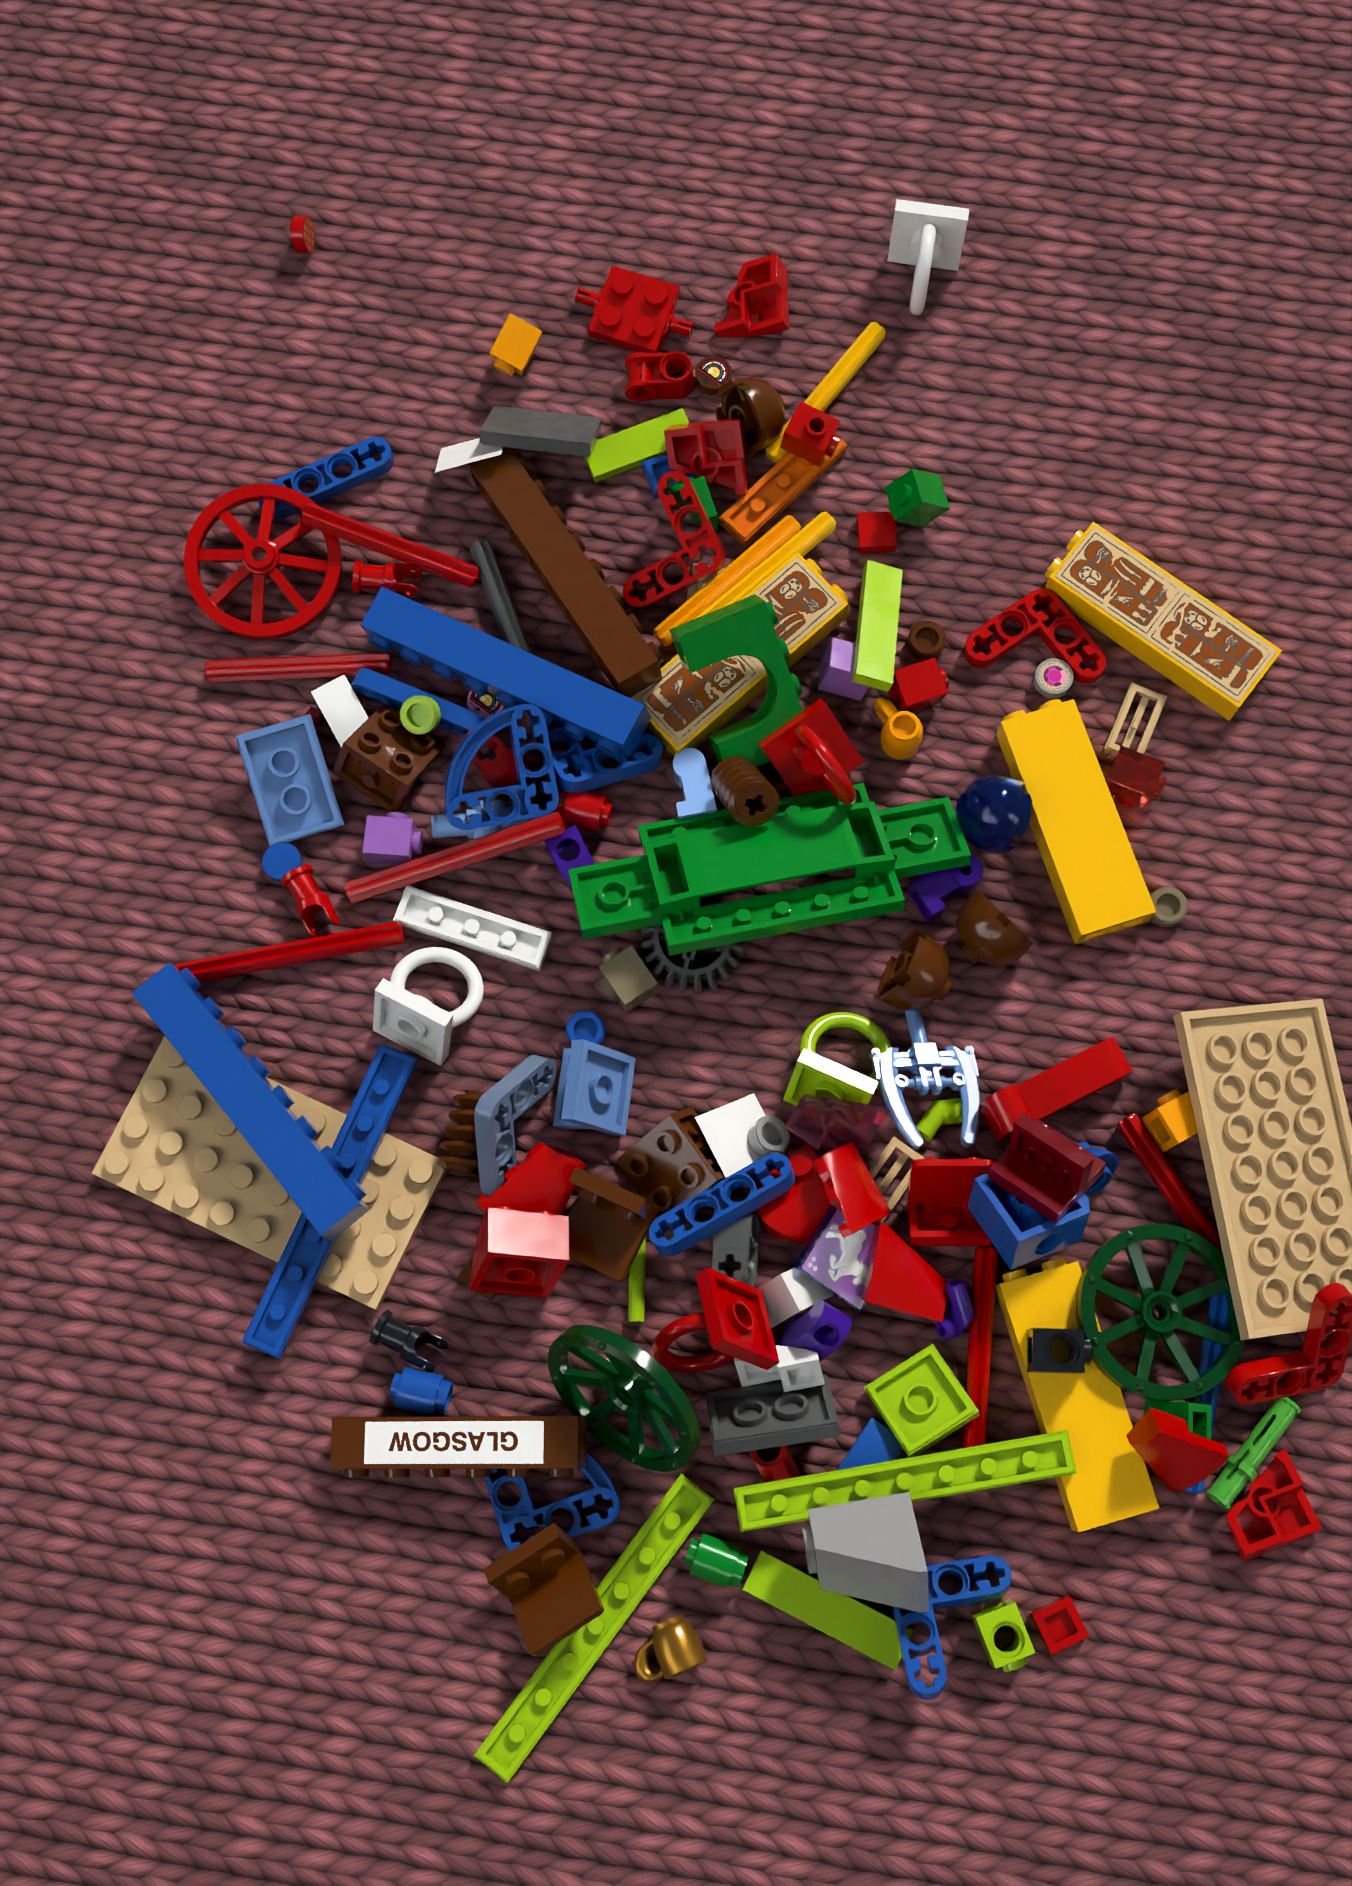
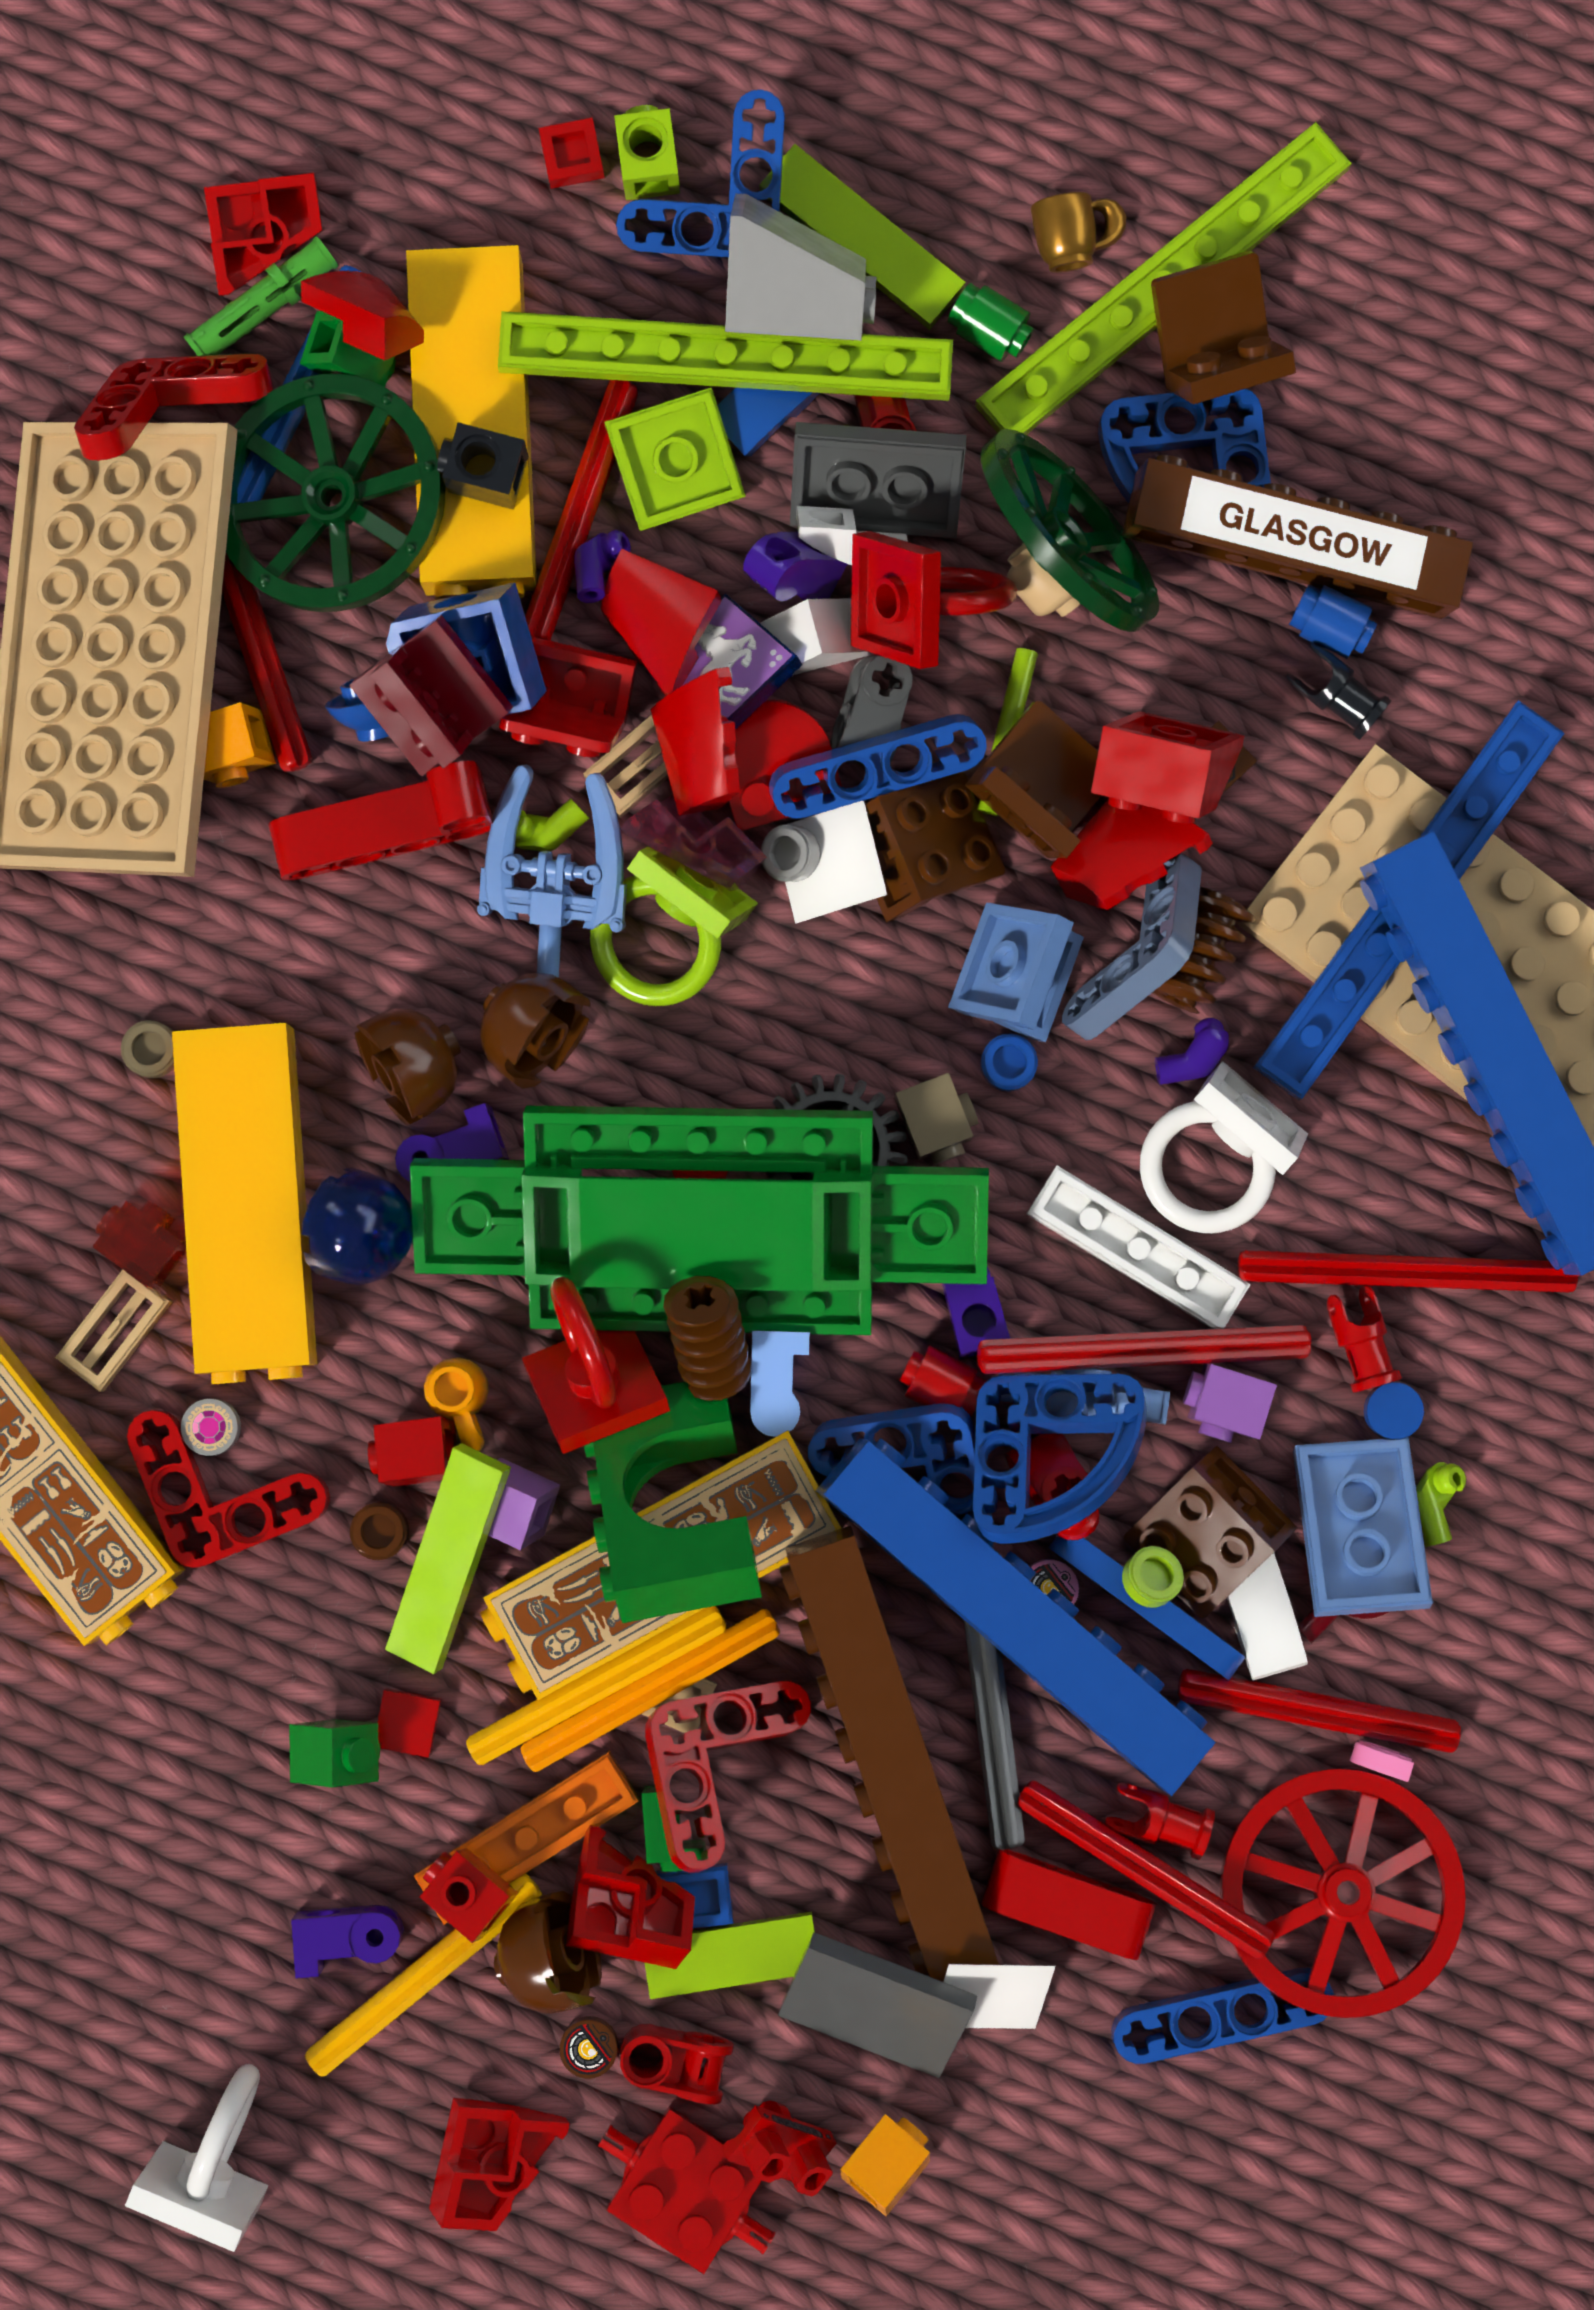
camera: 170 degrees left, 10 degrees up
(247, 815) = (1433, 1495): none -> lime arm
(251, 644) = (1382, 1760): none -> bright pink tile
(434, 517) = (1068, 1904): none -> red beam
(455, 1063) = (1200, 1058): none -> dark purple arm
(582, 342) = (782, 2148): none -> red hips
(880, 402) = (346, 1932): none -> dark purple leg

